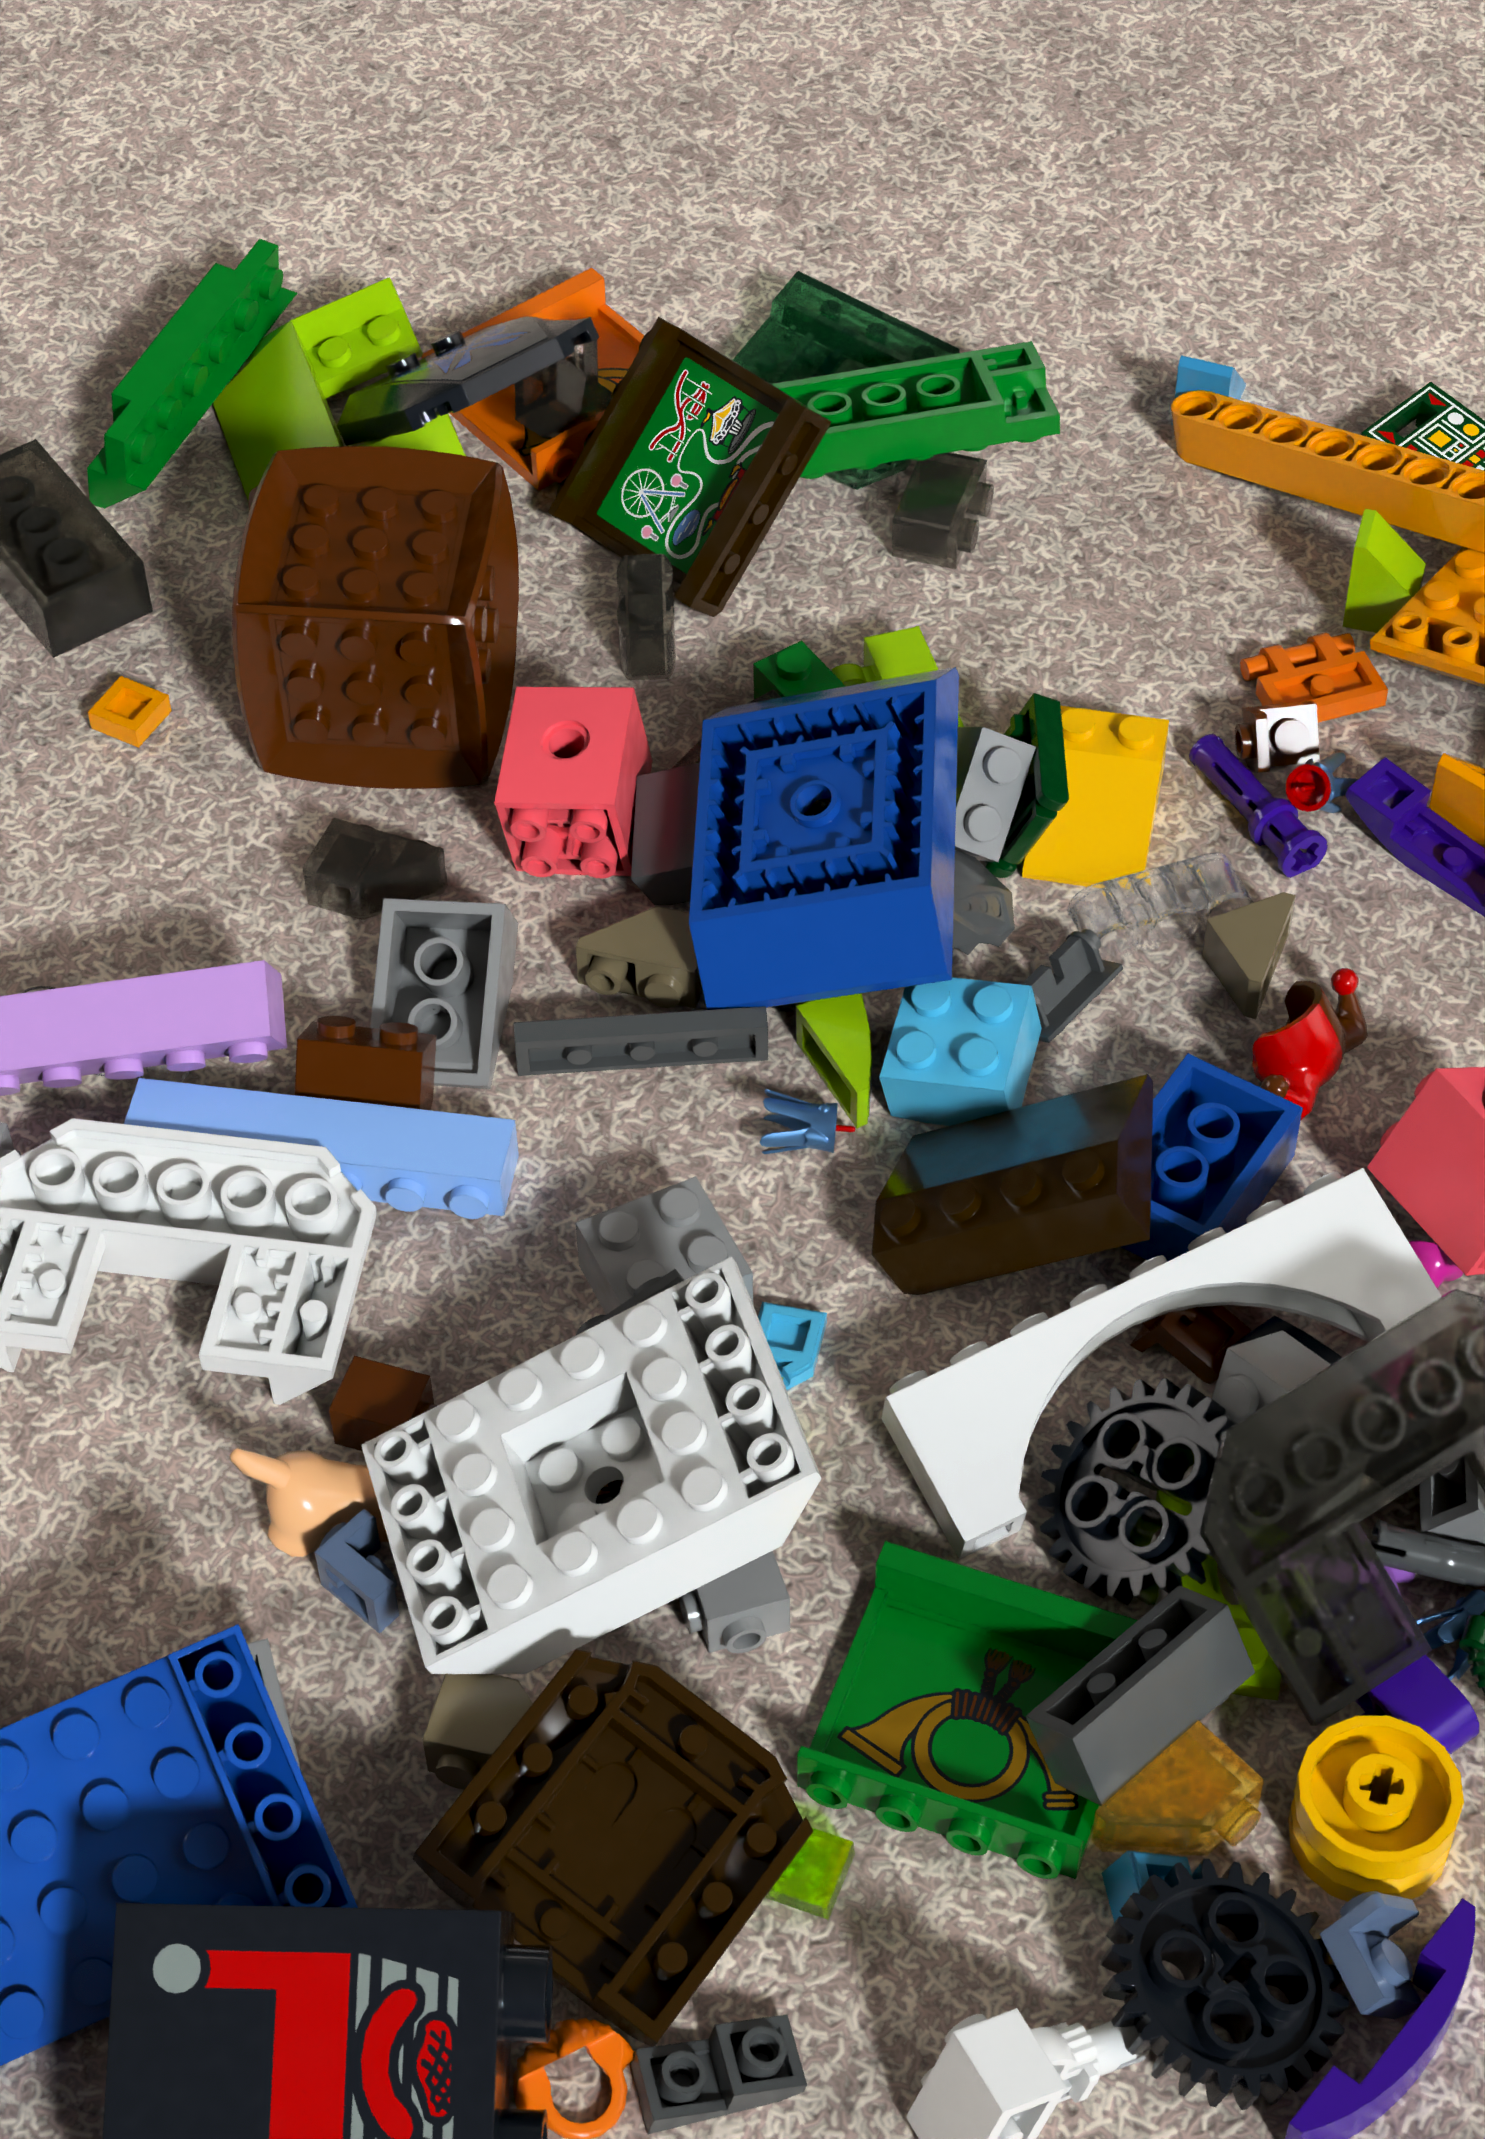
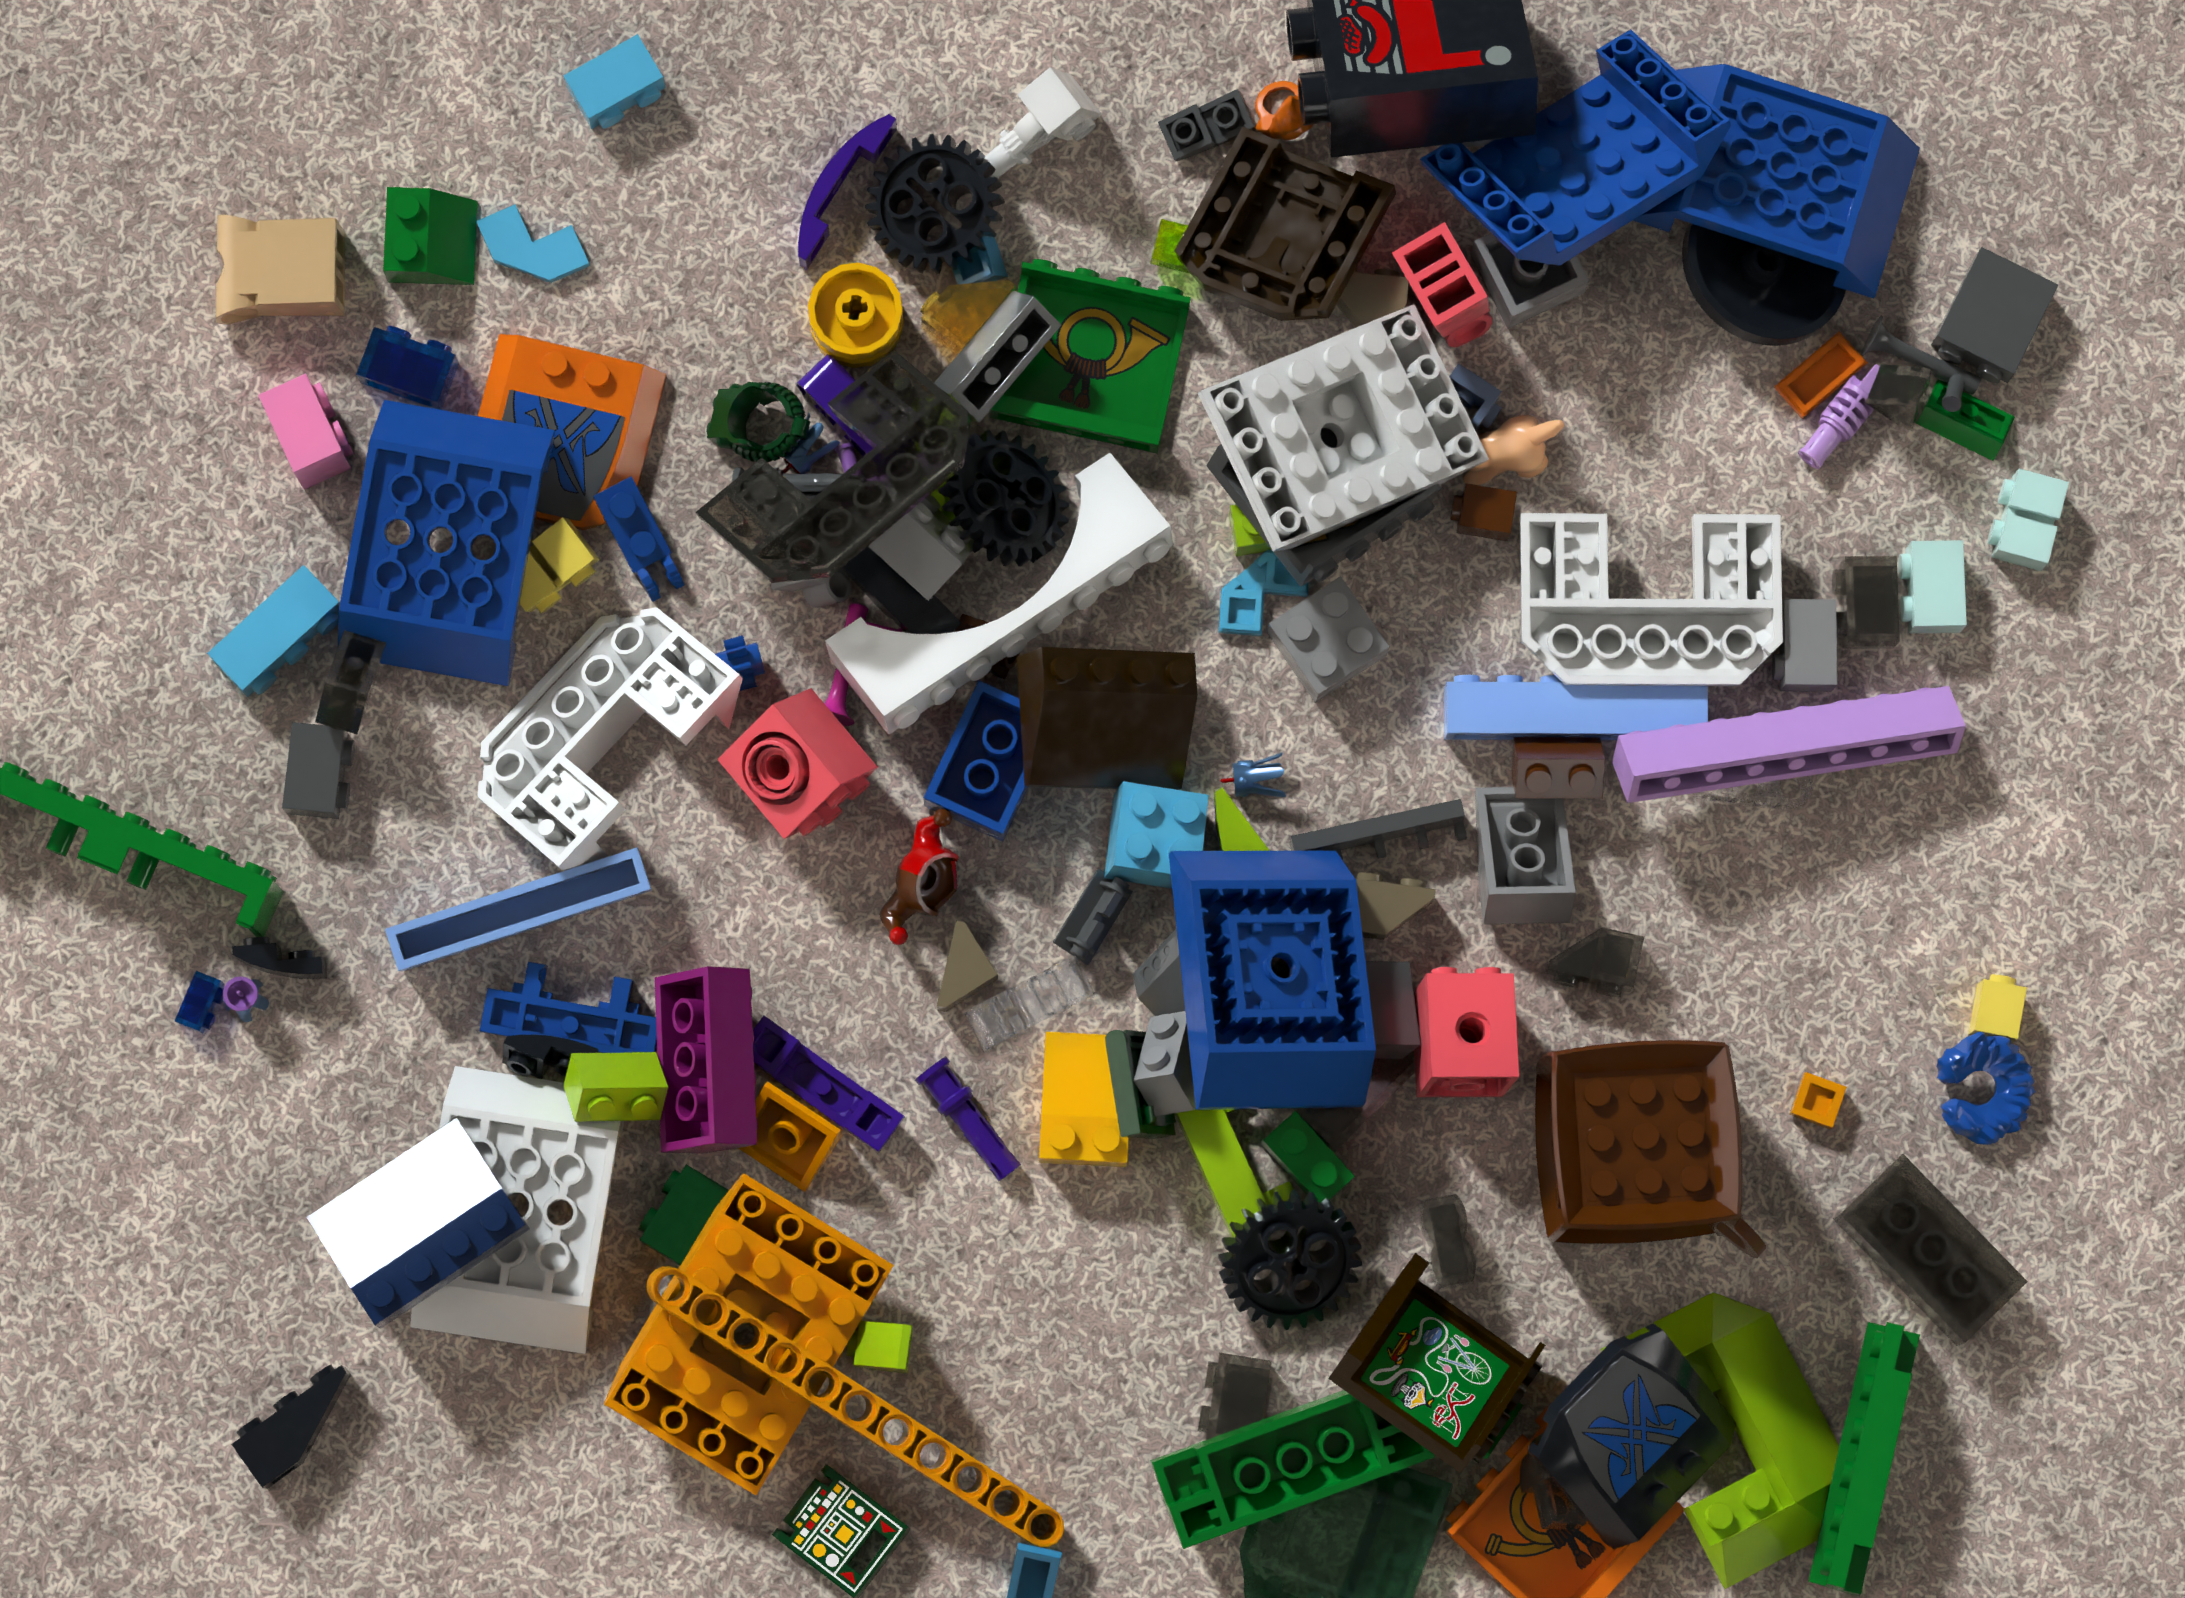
camera: 165 degrees right, 30 degrees up
(373, 1693) = (1445, 286): none -> coral piece
(852, 605) = (1254, 1252): none -> black gear
(1278, 735) = (958, 1184): bracket -> none
(1314, 786) = (927, 1119): red piece -> none
(1319, 672) = (927, 1243): orange plate -> none
(1367, 1960) = (853, 230): sand blue bracket -> none

